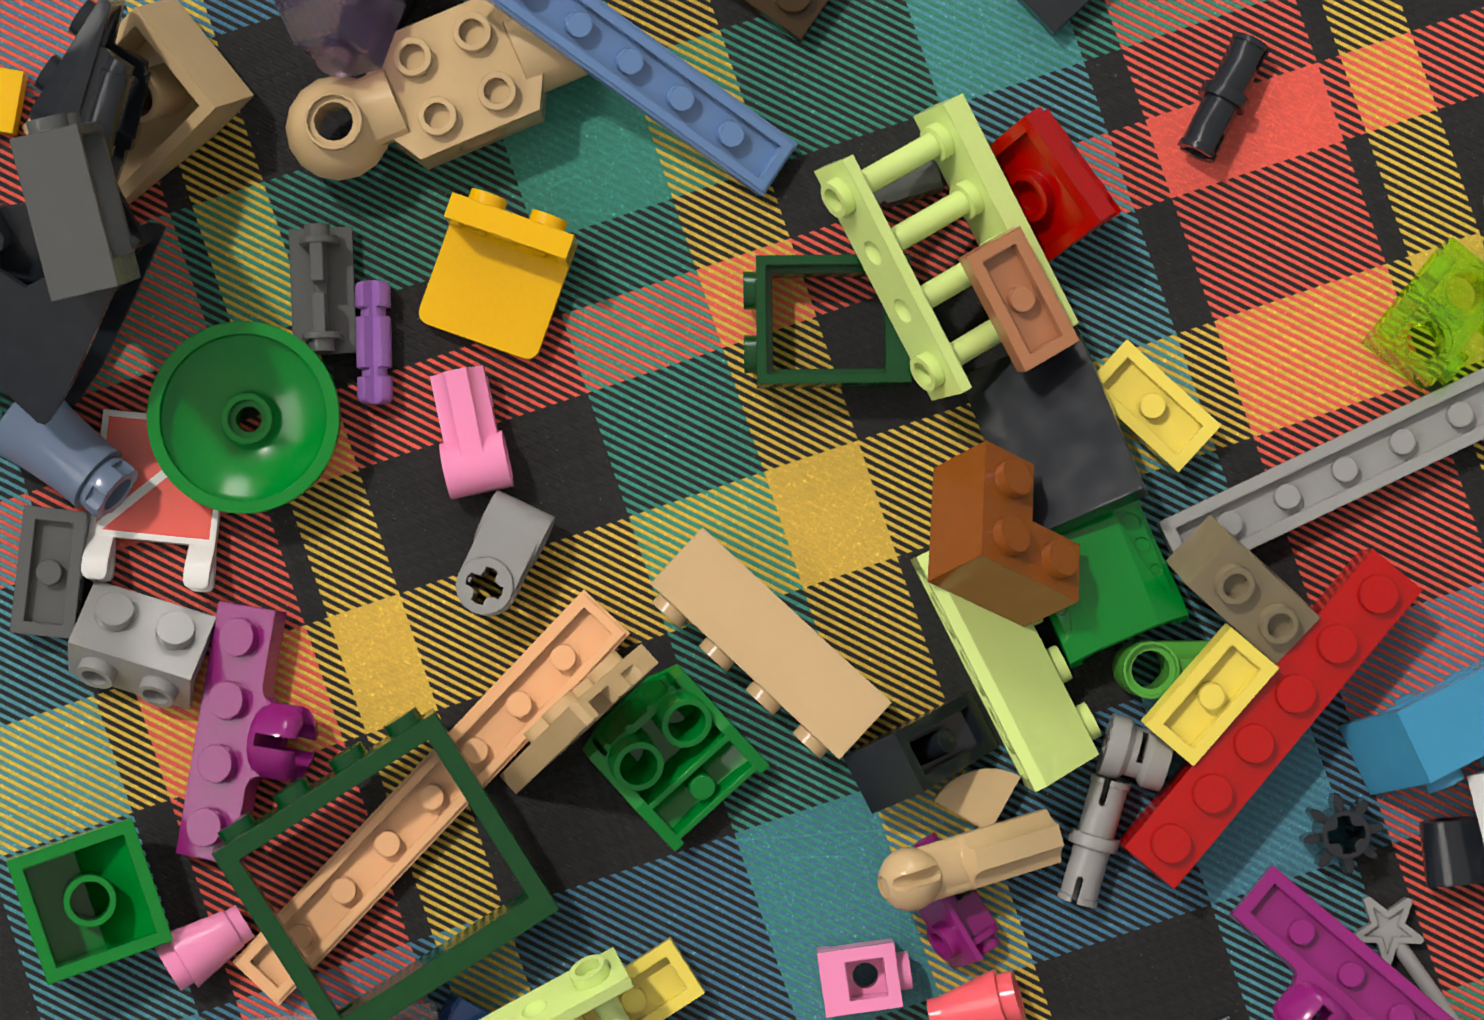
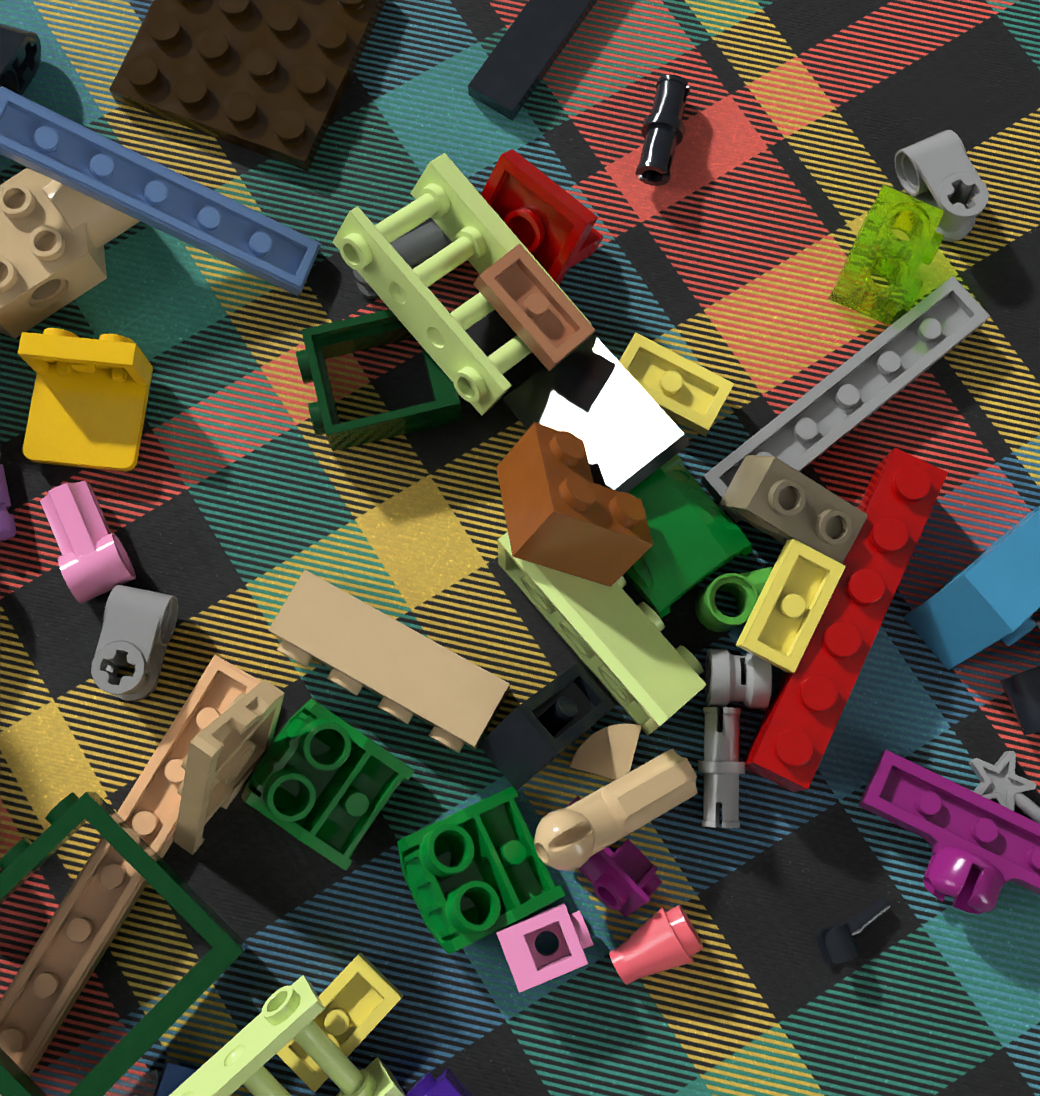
camera: 20 degrees left, 10 degrees down
(809, 885) = (476, 871): none -> green slope
(1354, 844) = (954, 700): black gear -> none

